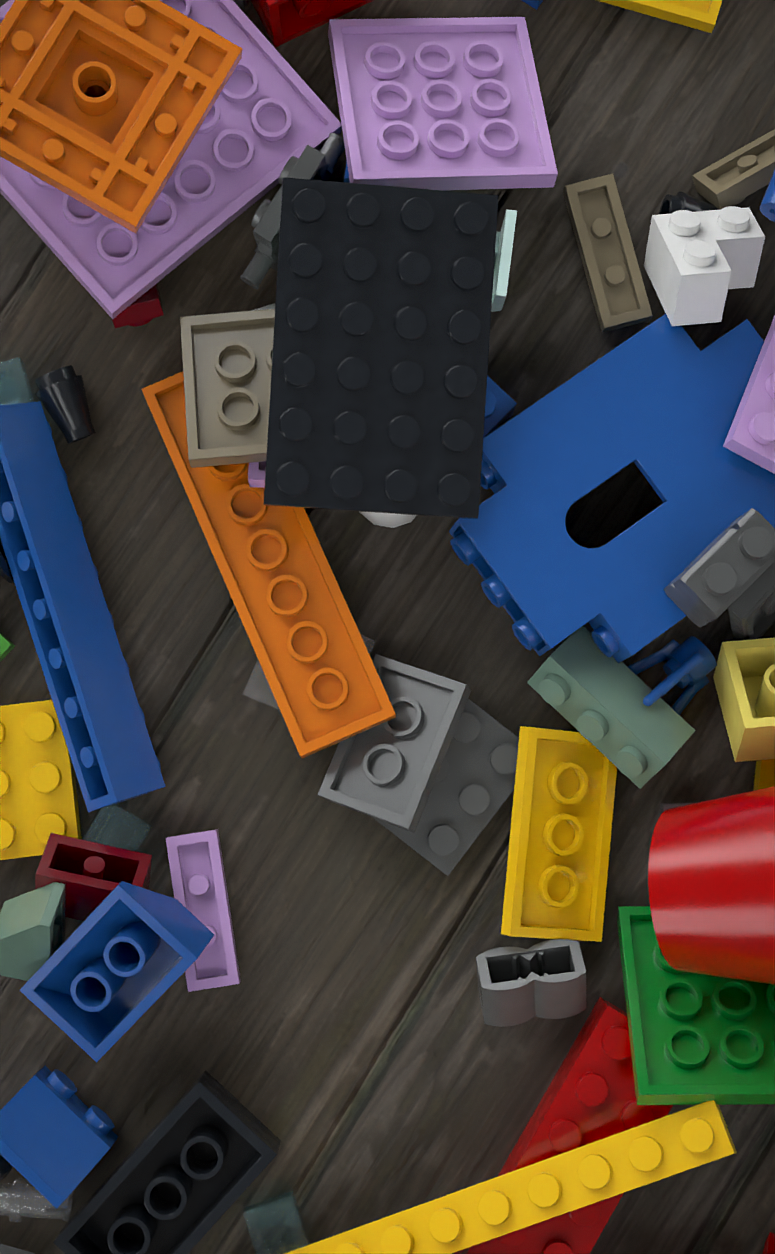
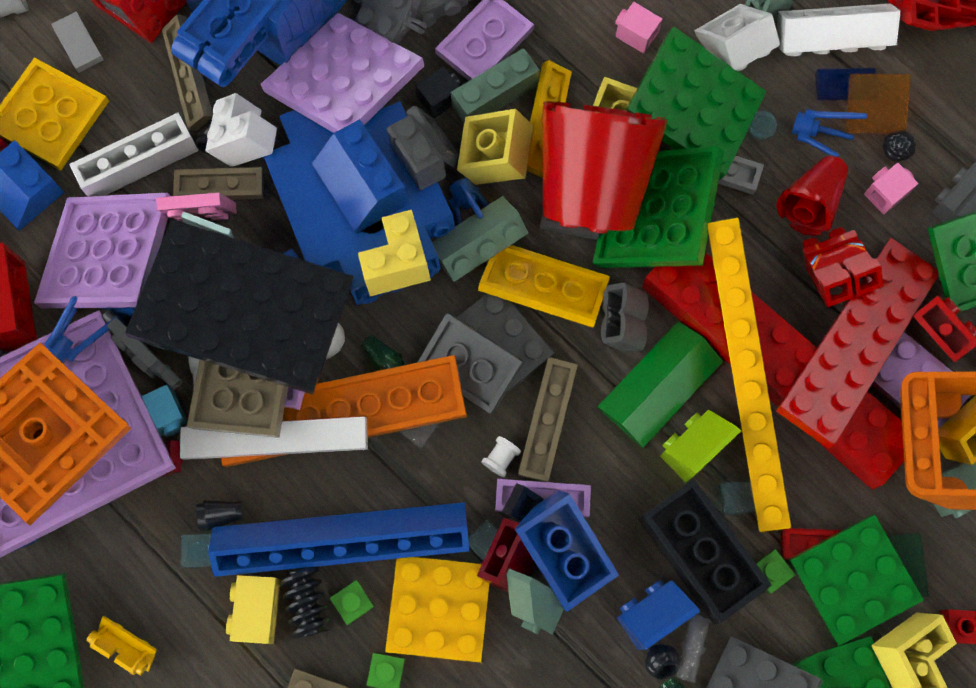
camera: 75 degrees left, 10 degrees down
(178, 879) = (521, 502): none -> black plate
(203, 491) = (294, 438): none -> white tile
(208, 276) = (165, 410): none -> medium azure brick
(255, 827) = (501, 456): none -> white bush
(263, 79) = (60, 345): none -> blue plant
(332, 890) = (547, 420): none -> dark tan plate
(342, 1151) = (698, 444): none -> lime slope
(376, 595) = (380, 354): none -> clear green cone
(439, 1063) = (660, 383): none -> green slope
(517, 590) = (399, 262): none -> light yellow brick
(548, 242) = (201, 205): none -> bright pink plate
(616, 102) = (134, 157): none -> white brick
(659, 483) = (359, 177): none -> blue slope

